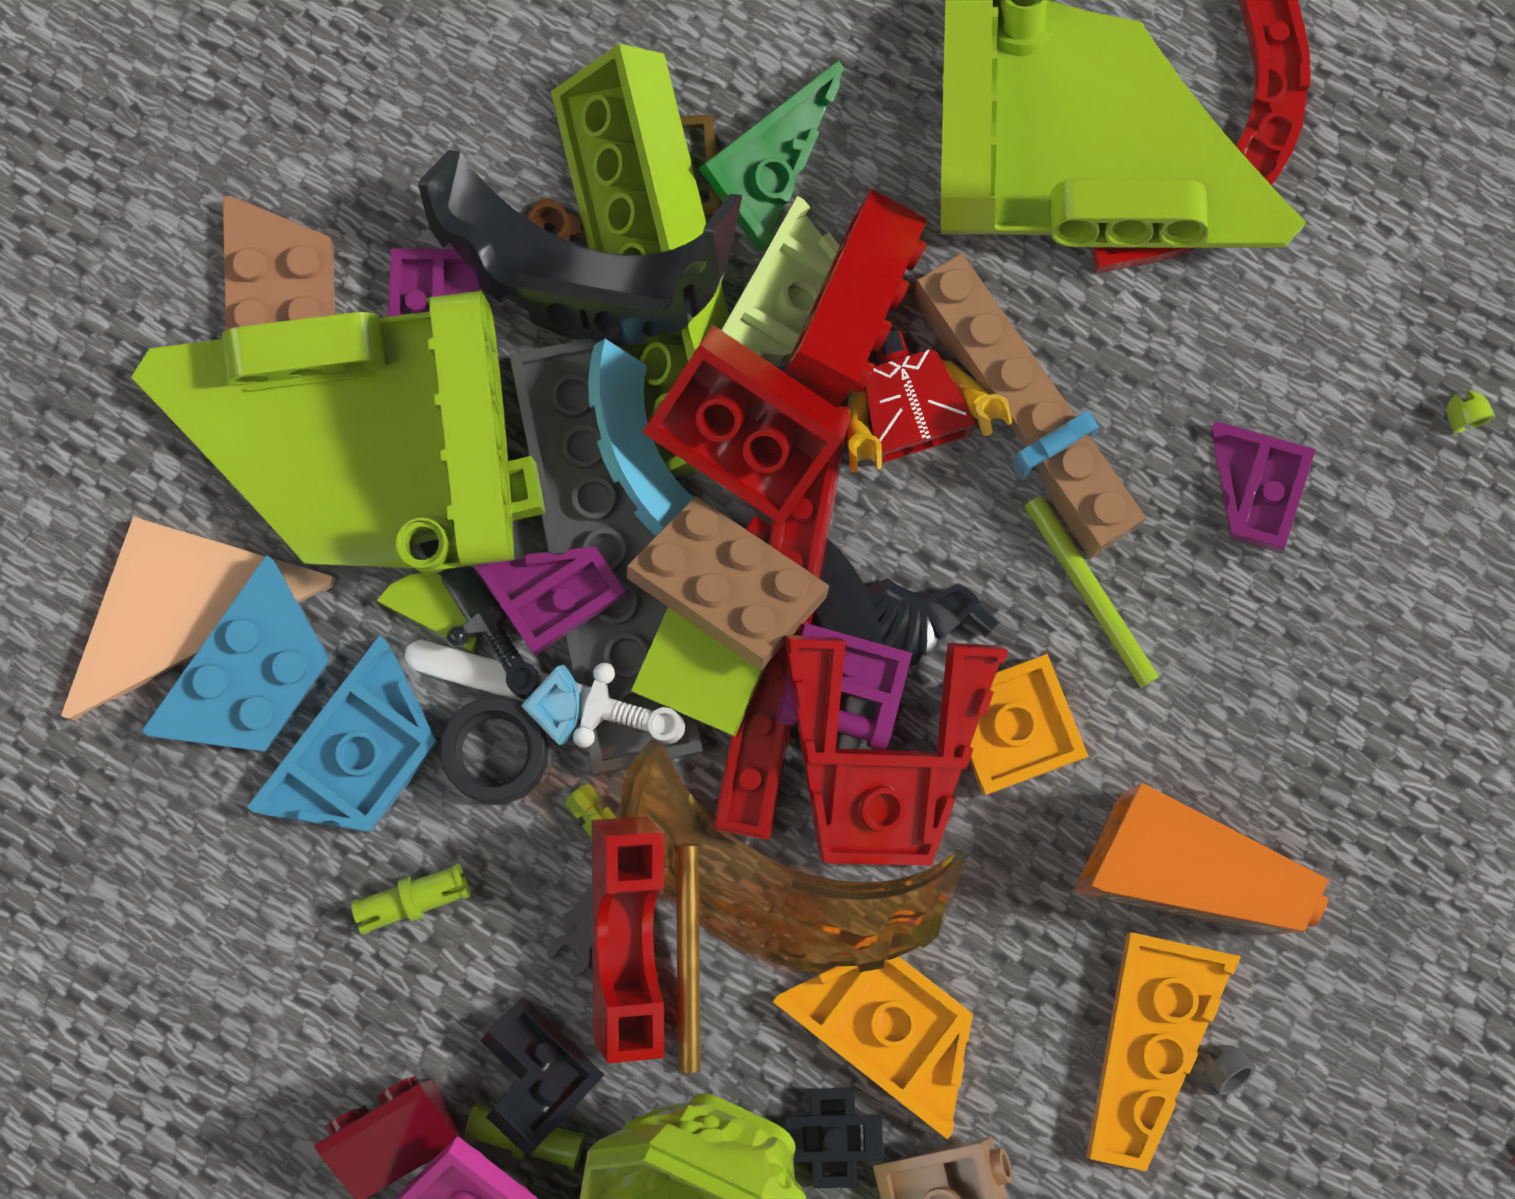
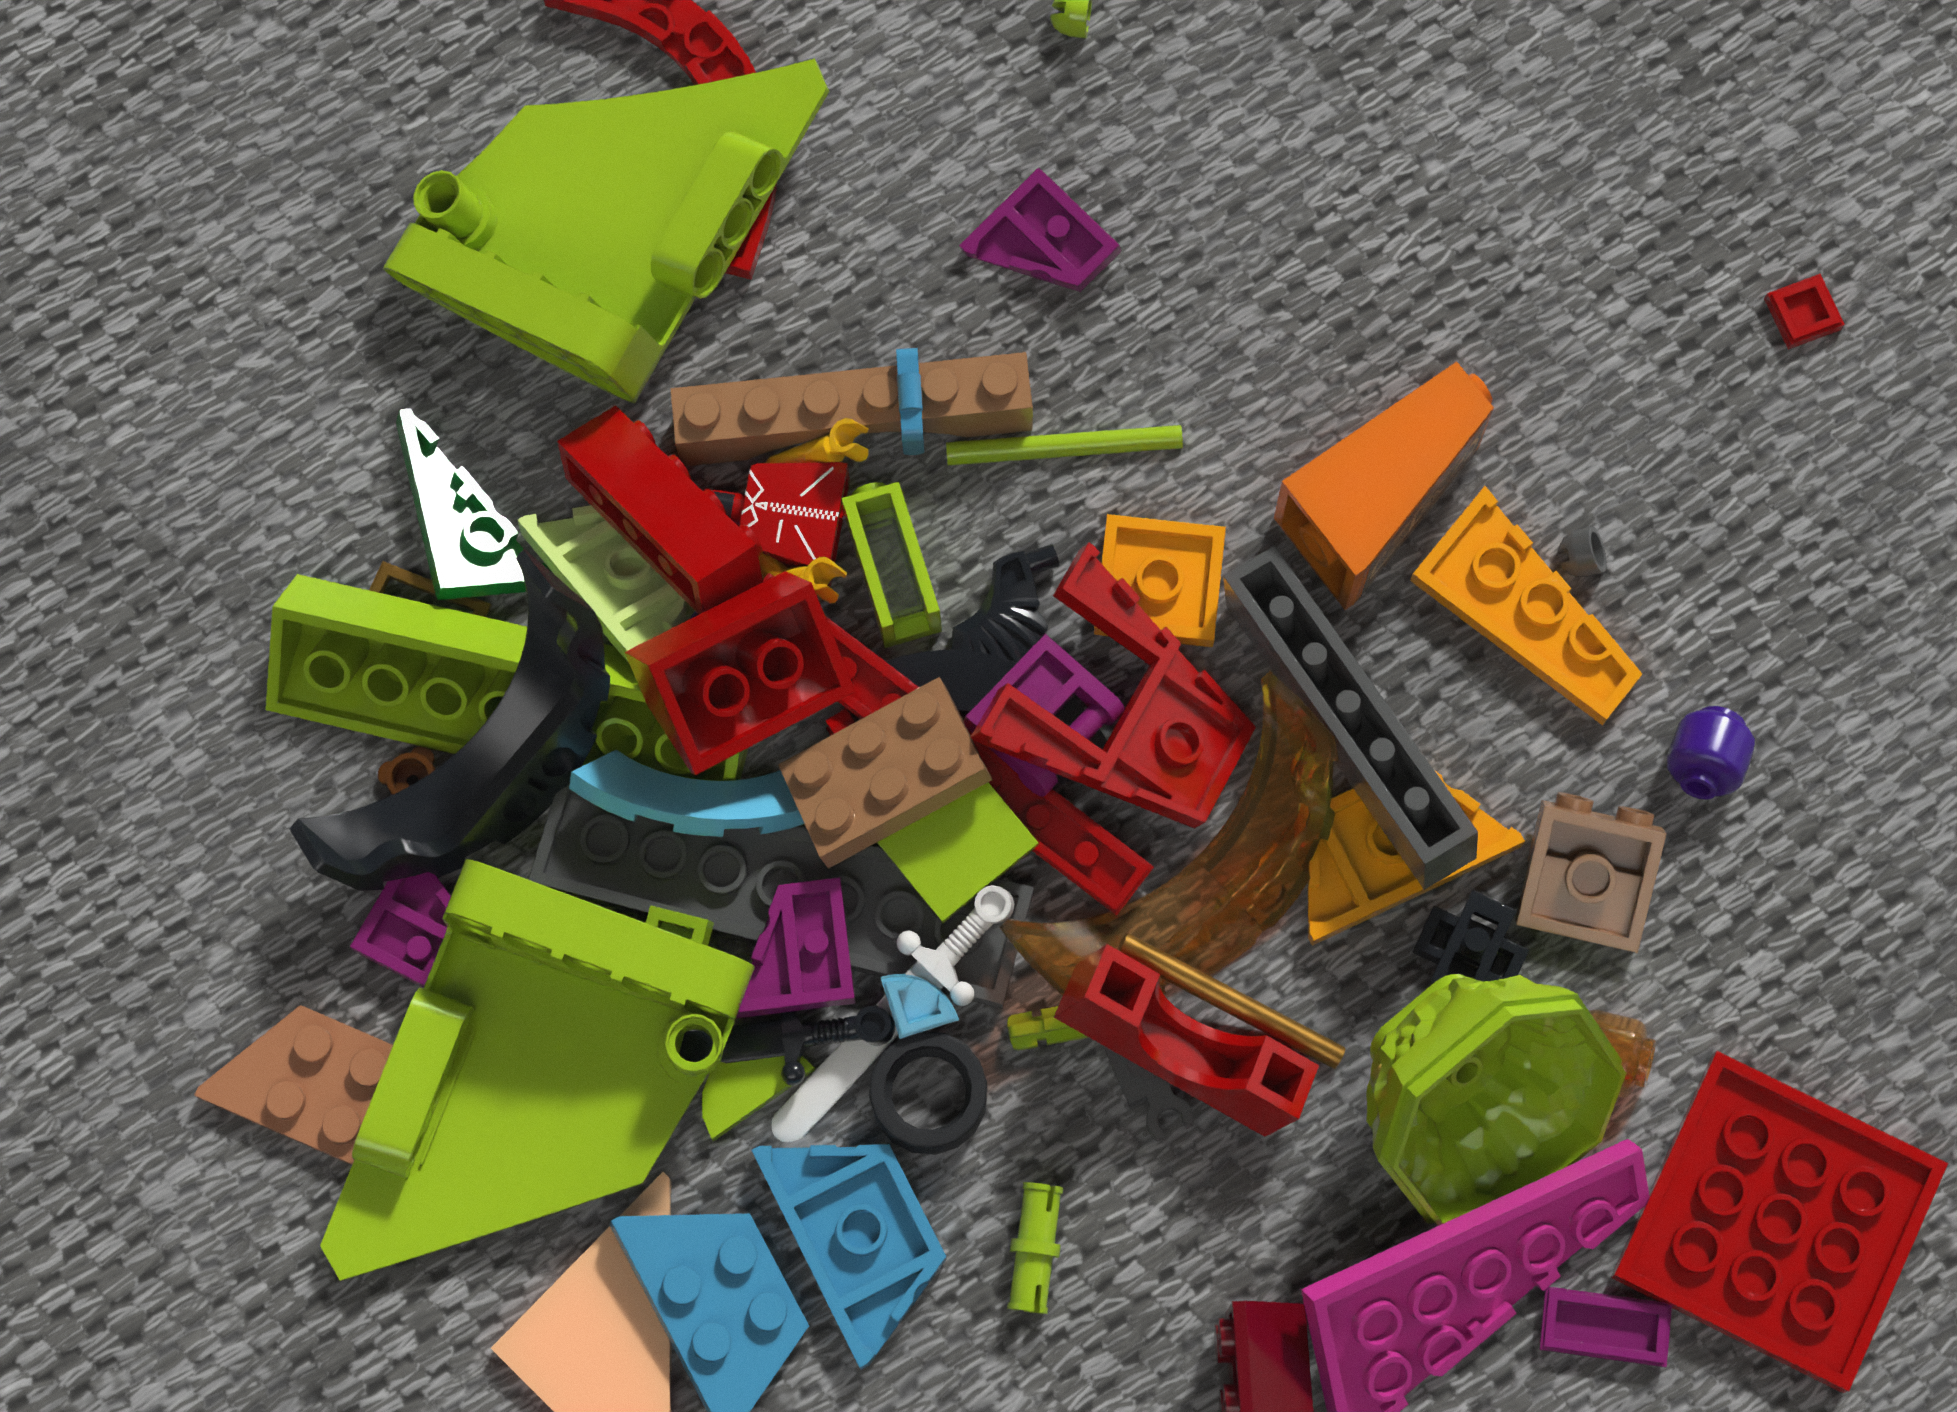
camera: 55 degrees left, 5 degrees down
(550, 1073) = (1279, 1189): black plate -> none
(560, 1147) = (1327, 1244): lime pin -> none
(914, 501) = (891, 563): none -> lime window
(972, 941) = (1370, 740): none -> dark grey brick

